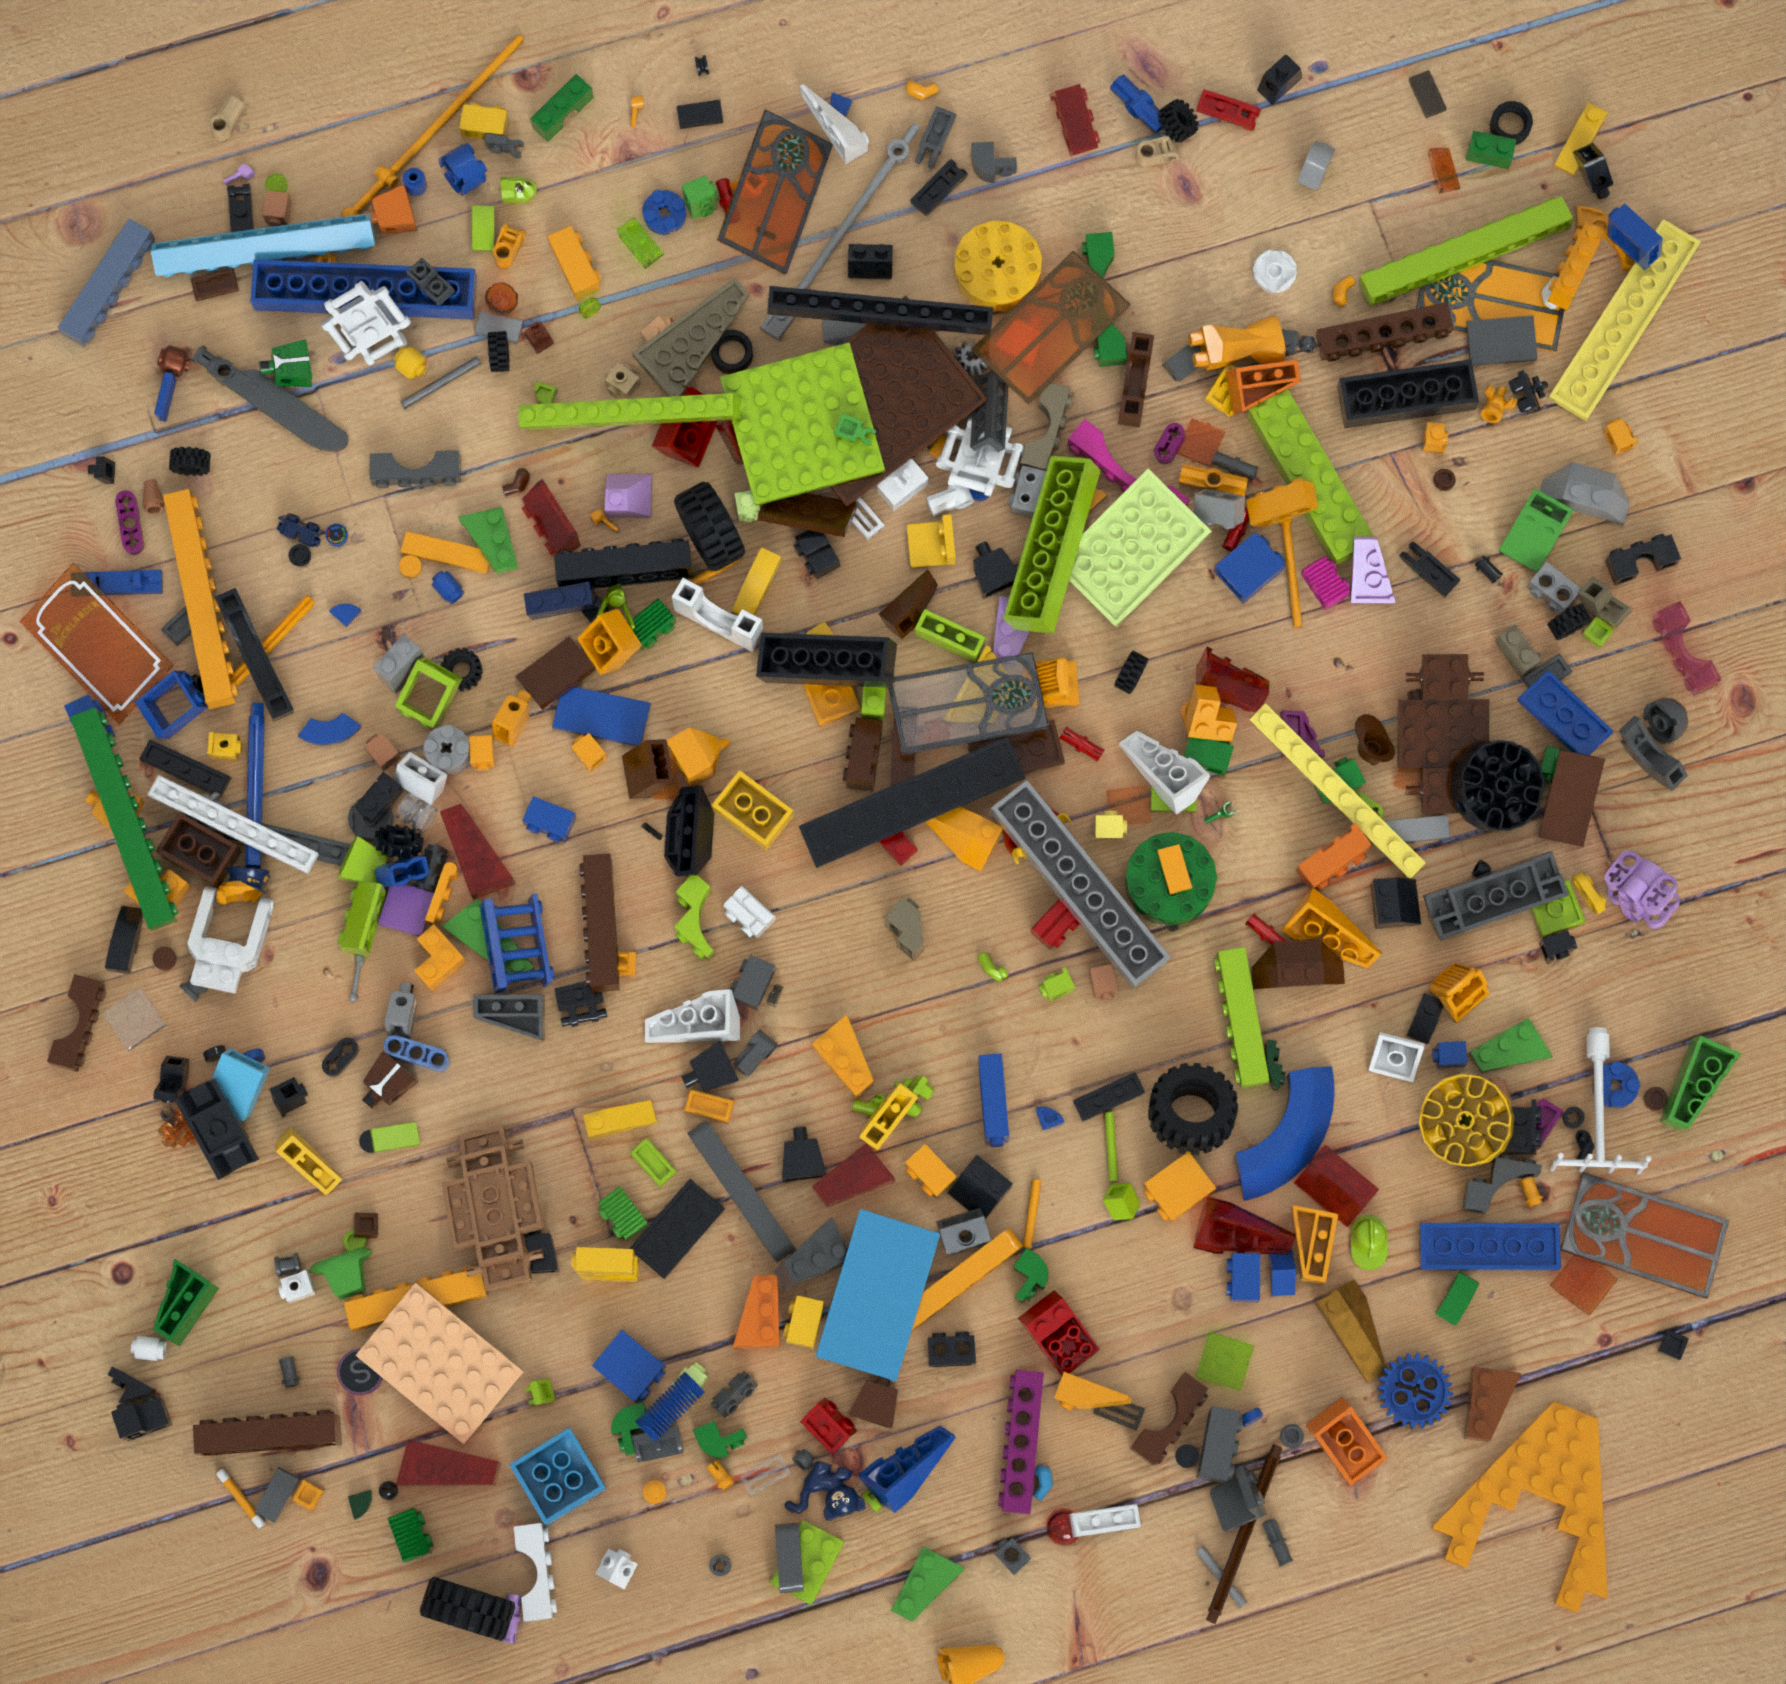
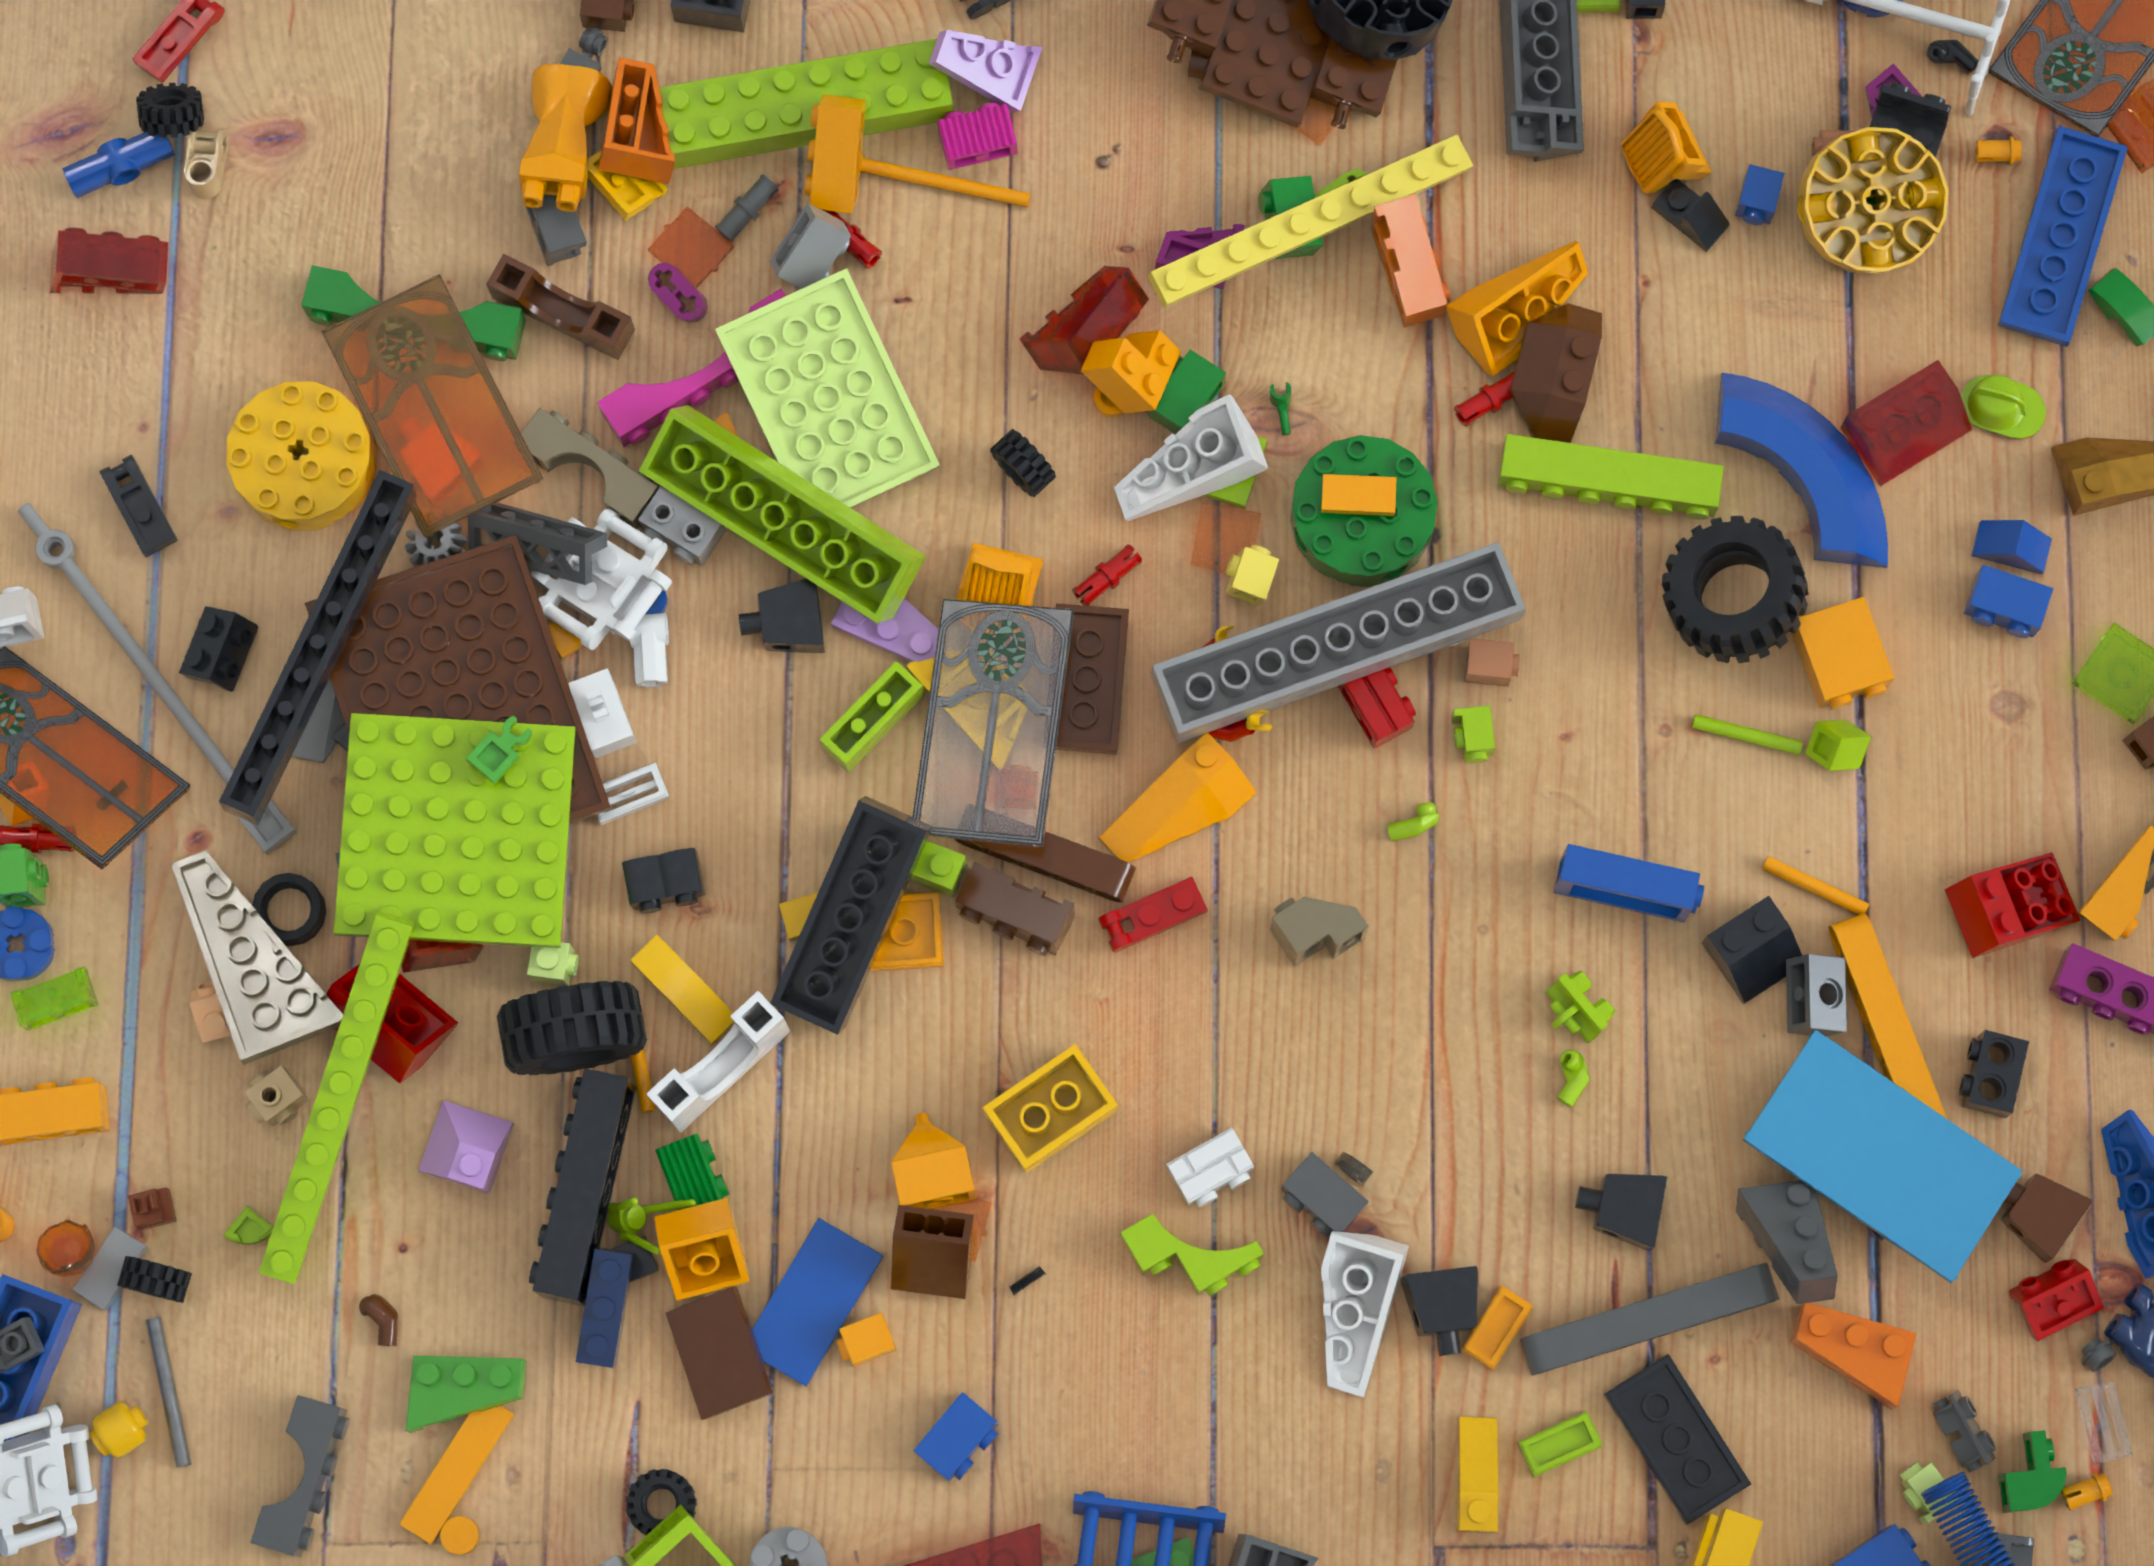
camera: 70 degrees left, 0 degrees up
(447, 586) = (516, 1484): blue brick -> none
(482, 752) = (811, 1512): light orange brick -> none
(511, 718) = (777, 1452): light orange torso -> none
(549, 519) = (466, 1283): clear red slope -> none
(578, 996) = (1258, 1479): black plate -> none
(589, 308) = (132, 1112): clear neon green tile -> none
(598, 516) = (483, 1204): light orange hand -> none
(600, 923) = (1154, 1405): reddish brown brick -> none
(622, 1213) = (1630, 1517): bright green brick -> none
(627, 963) = (1226, 1390): light orange tile -> none
(689, 832) = (1053, 1221): black wedge -> none
(758, 1048) = (1432, 1221): dark grey piece -> none
(804, 1321) = (1887, 1284): yellow brick -> none
(810, 513) = (601, 867): reddish brown plate -> none
(844, 1057) = (1488, 1090): light orange wedge -> none
(854, 1176) = (1682, 1137): clear red wedge -> none
(887, 1116) = (1608, 1053): yellow slope -> none
(906, 609) = (805, 767): reddish brown slope -> none
(912, 802) = (1121, 858): black plate -> none
(929, 1171) = (1708, 1016): light orange brick -> none
(931, 543) = (711, 697): yellow bracket -> none
(936, 135) = (51, 482): dark grey hinge -> none
(987, 166) = (130, 421): dark grey brick -> none
(1036, 1272) = (1912, 907): green brick -> none
(1049, 1117) = (1673, 813): blue tile -> none
(1108, 1097) = (1670, 712): black plate -> none
(1199, 477) = (749, 265): light orange piece -> none
(1232, 1228) = (1925, 596): clear red wedge -> none
(1250, 567) = (915, 237): blue brick -> none
(1274, 271) = (460, 52): white tile -> none
(1275, 1072) = (1709, 452): dark green slope -> none
(1313, 1242) = (1988, 482): light orange wedge -> none
(1373, 742) = (1248, 147): reddish brown piece -> none
(1395, 902) = (1503, 200): black slope -> none
(1396, 1057) = (1738, 274): white slope -> none
(1421, 828) = (1401, 123): light grey tile -> none
(1479, 1193) = (1981, 221): dark grey arch -> none
(1481, 868) = (1490, 61): black hinge -> none
(1513, 1047) = (1773, 108): bright green wing -> none
(1569, 1111) = (1904, 44): black bush -> none

